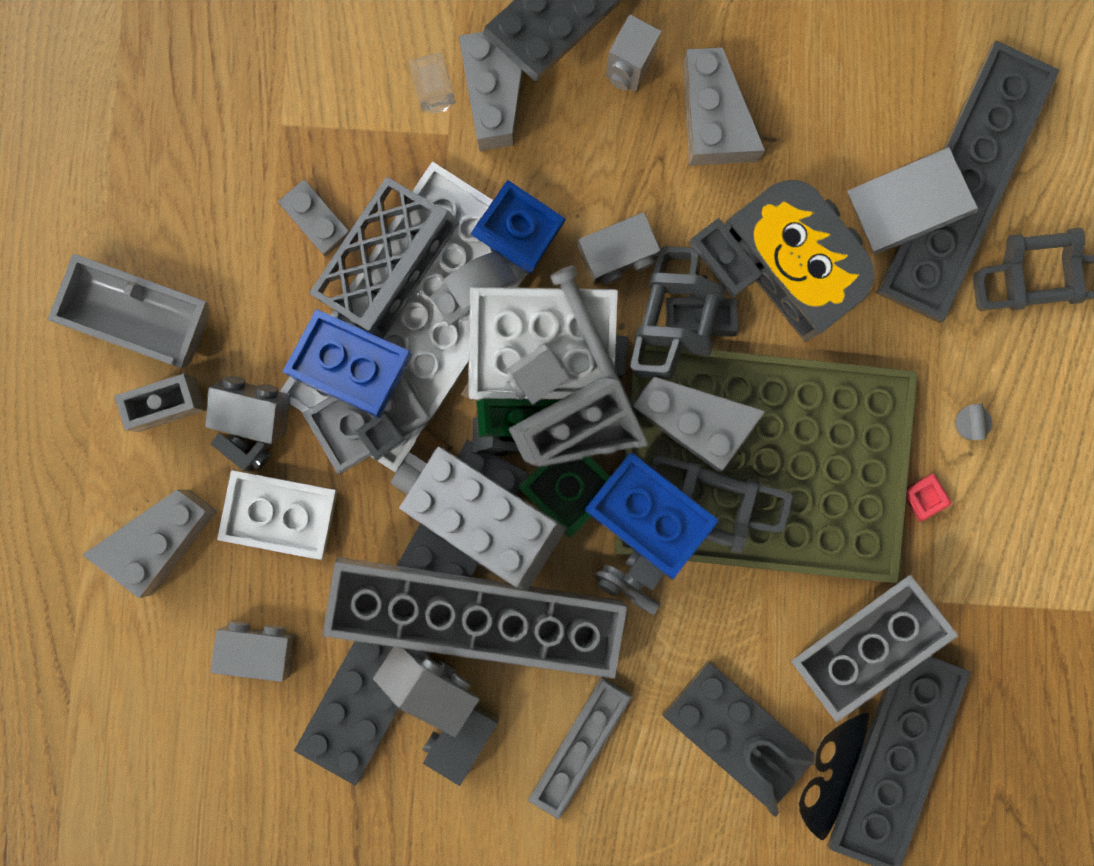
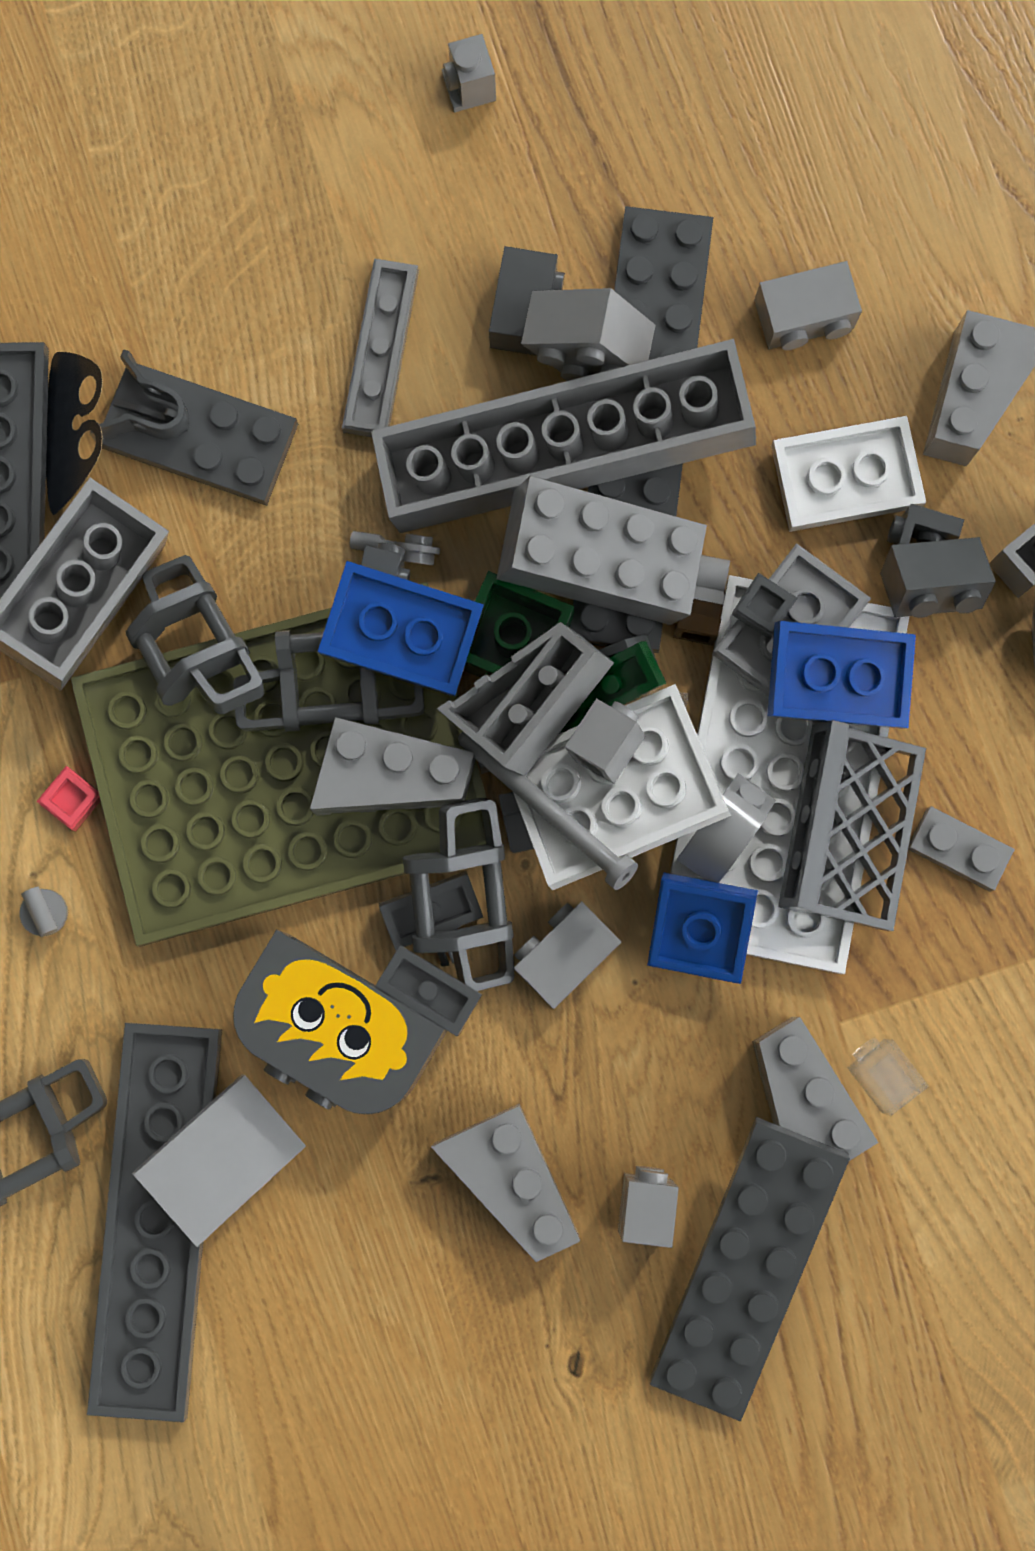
camera: 160 degrees right, 5 degrees down
(812, 547) = (192, 670): none -> dark grey bar

